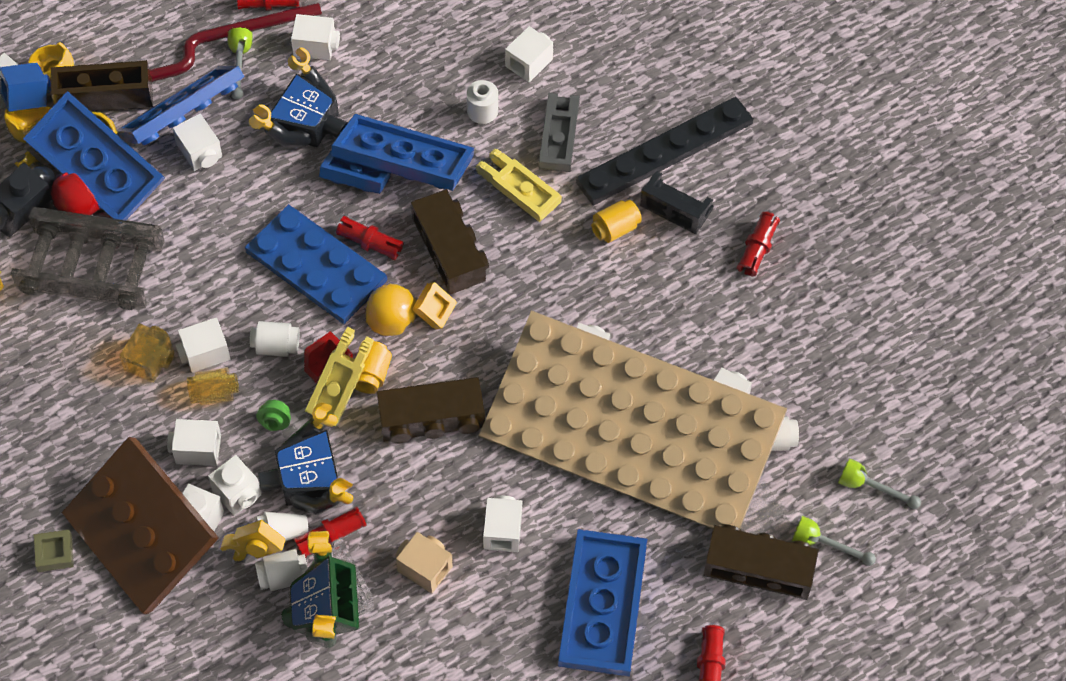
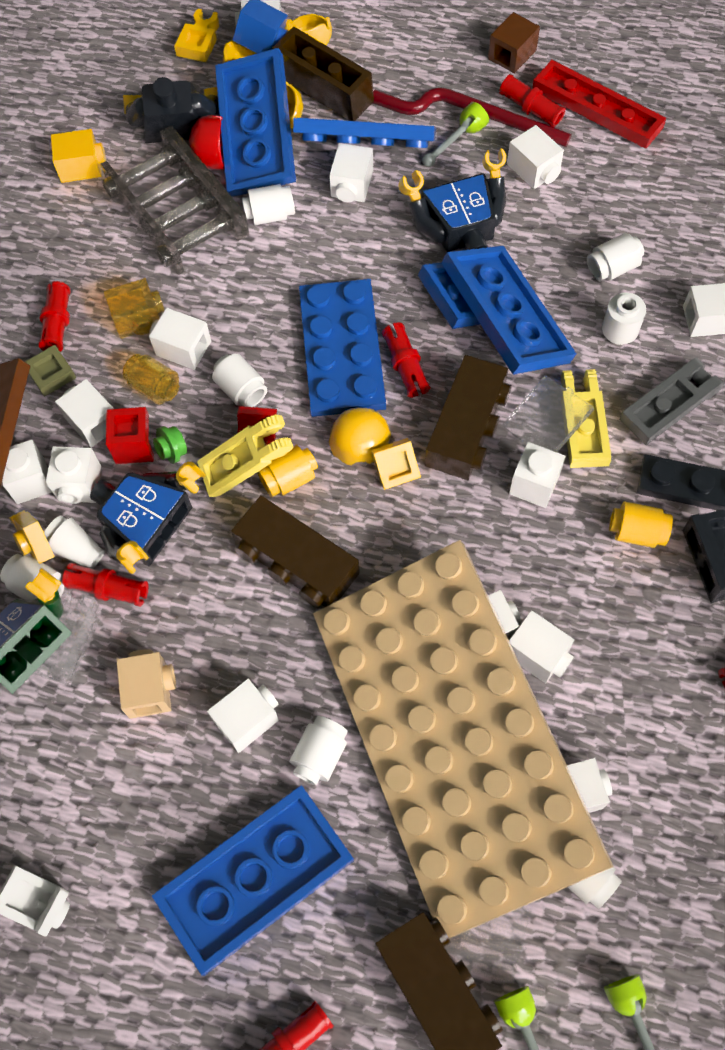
camera: 50 degrees right, 5 degrees up
(93, 404) = (54, 316): none -> red pin
(142, 432) = (50, 370): none -> olive plate
(162, 207) = (269, 204): none -> white brick
(244, 431) = (128, 435): none -> red panel
(434, 66) = (615, 257): none -> white brick
(497, 201) = (548, 415): none -> clear piece
(528, 241) = (536, 474): none -> white brick
(566, 503) = (318, 750): none -> white brick
(633, 333) = (542, 647): none -> white brick

